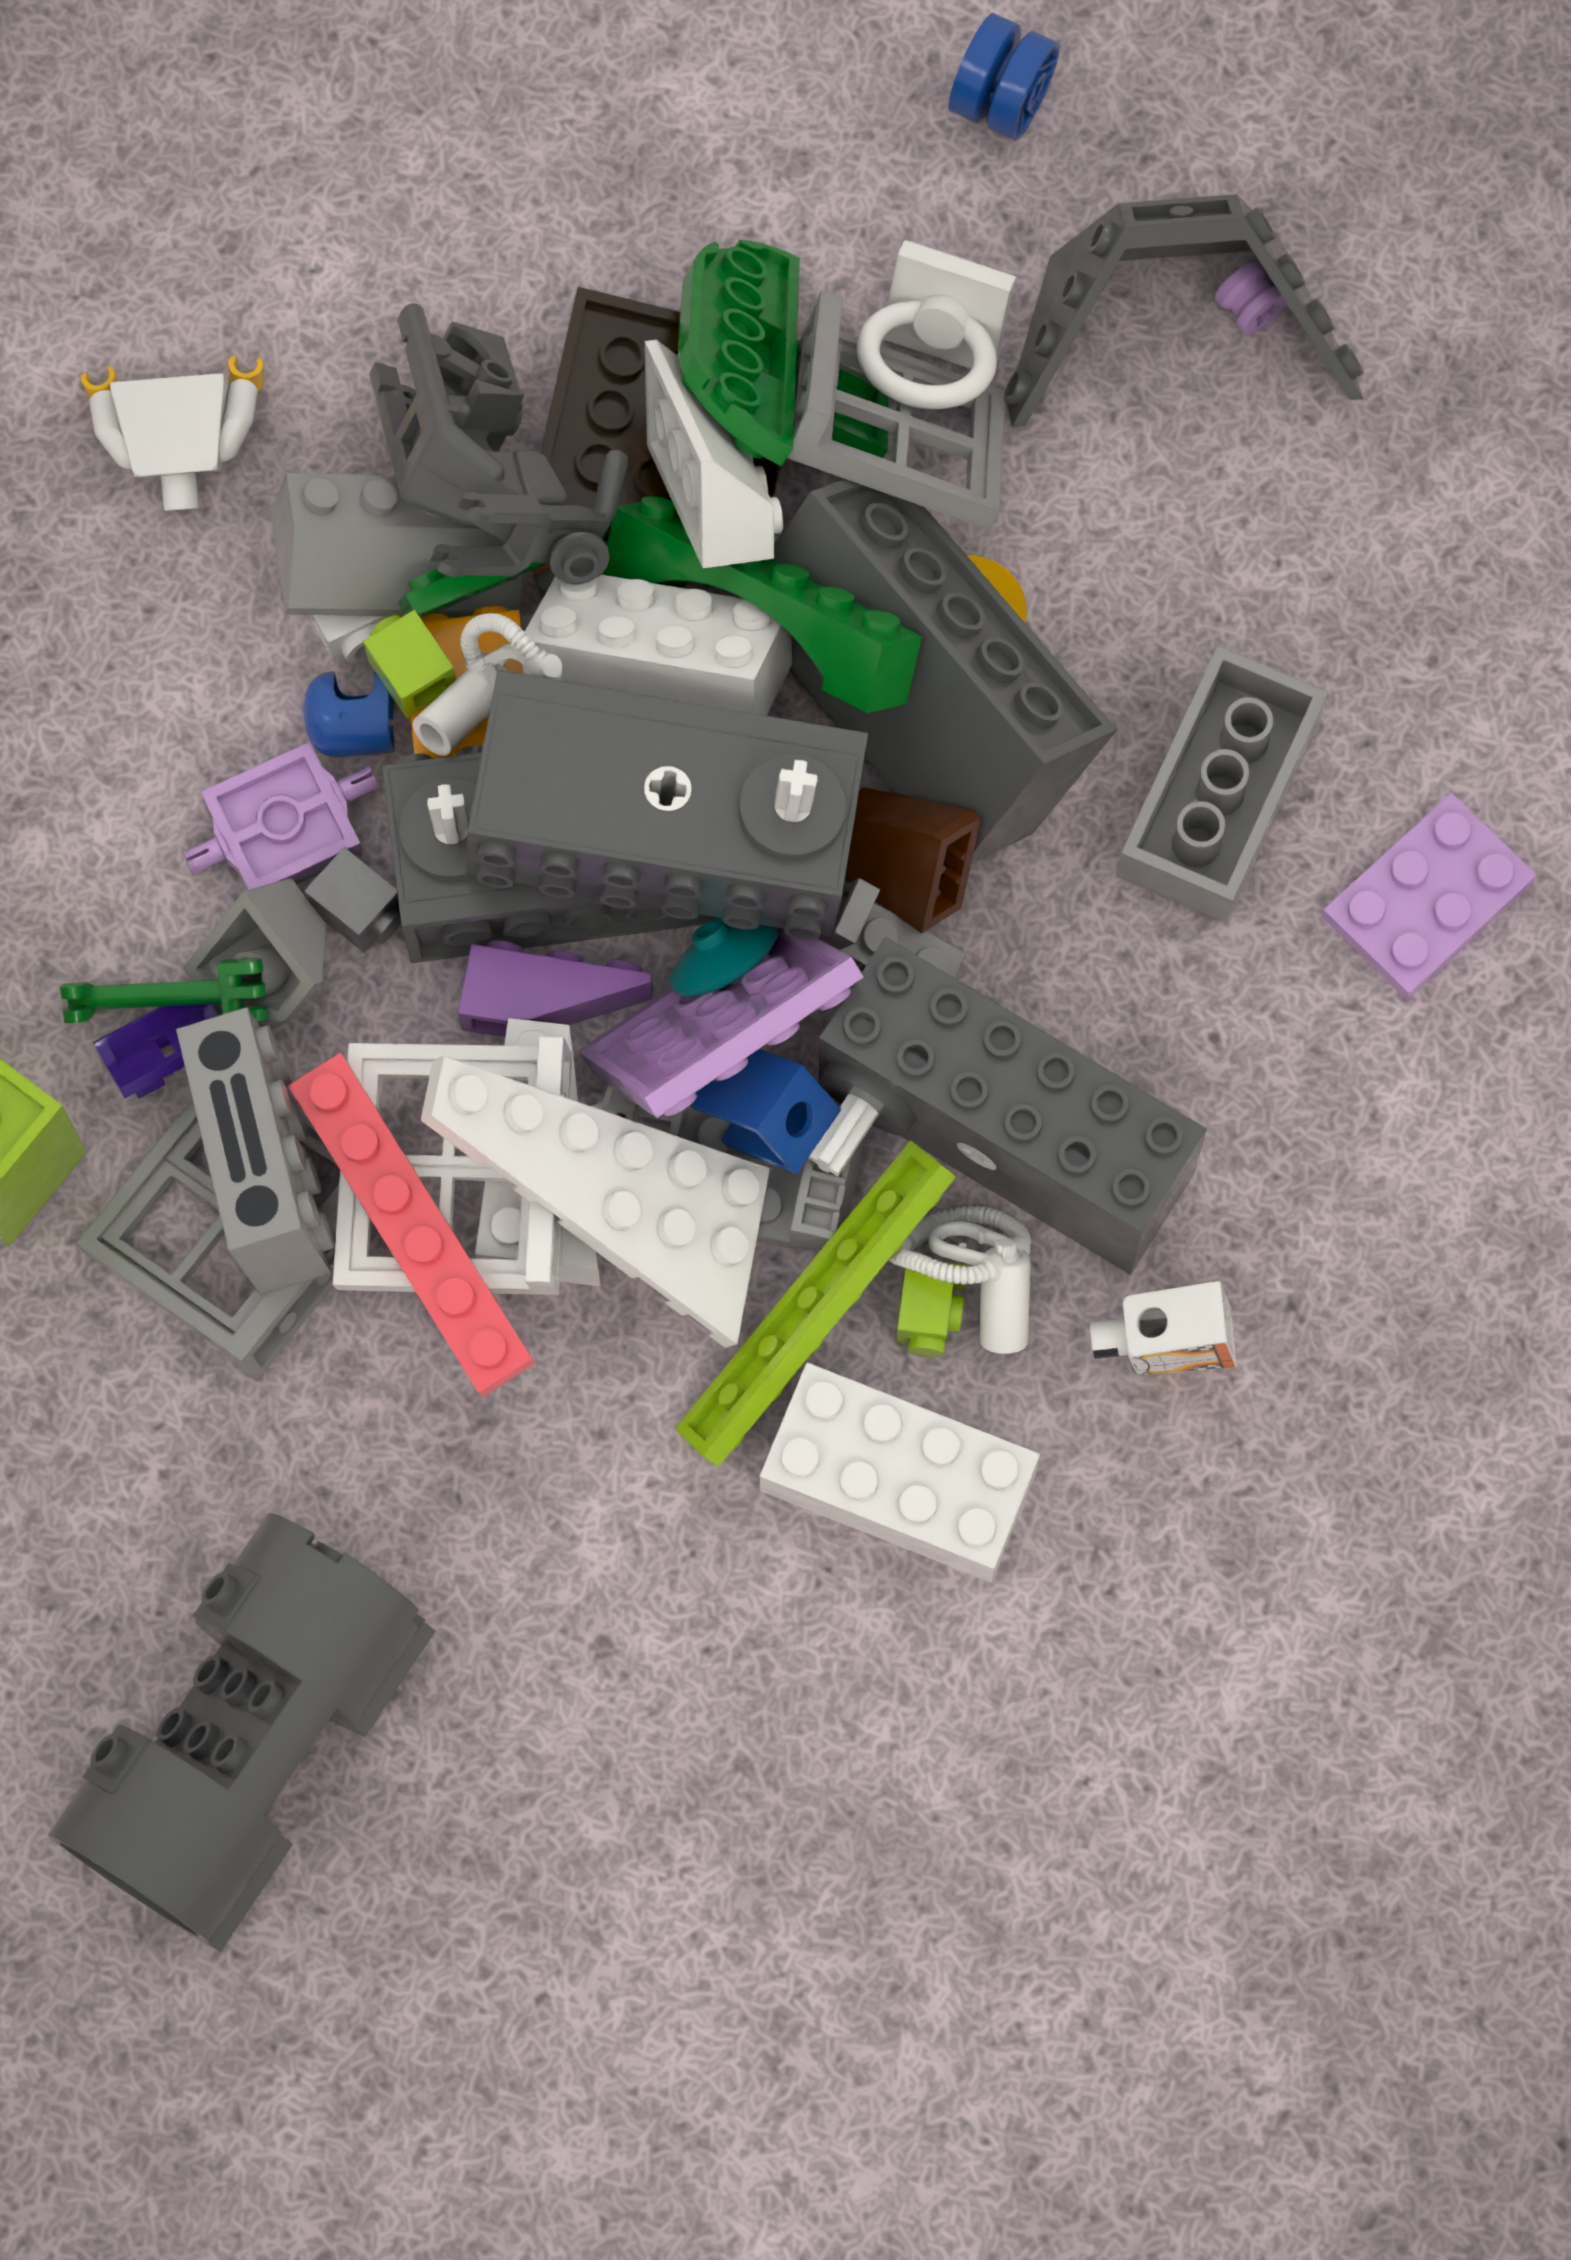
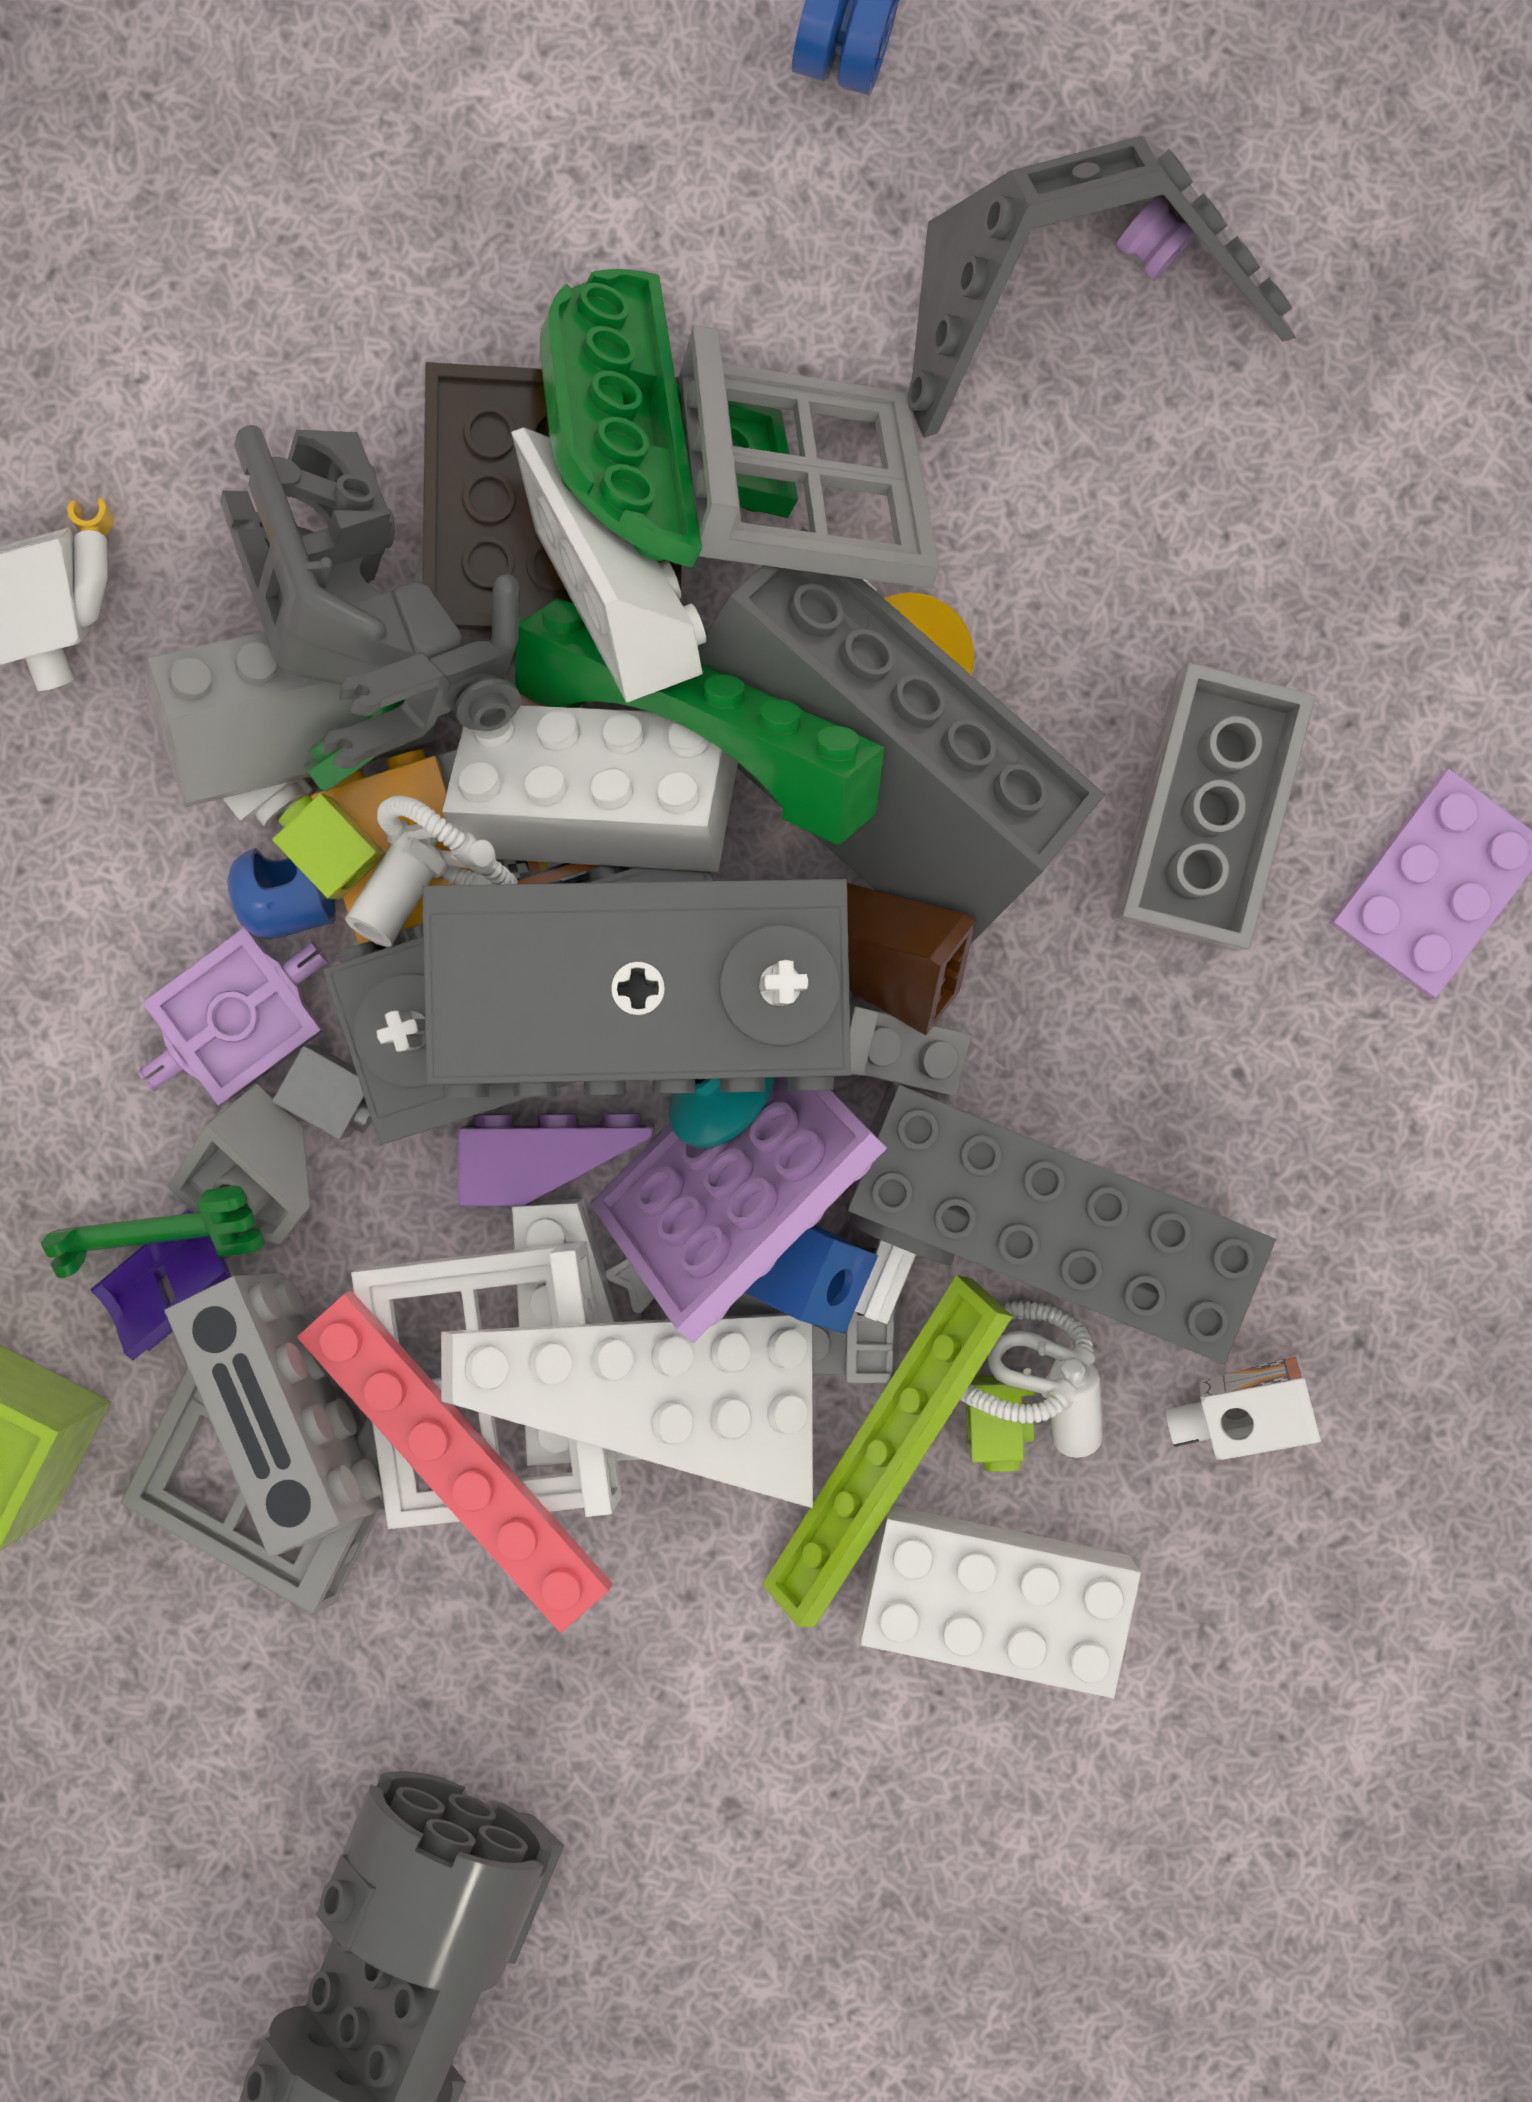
camera: 10 degrees left, 15 degrees up
(944, 311) = (830, 317): white tile -> none

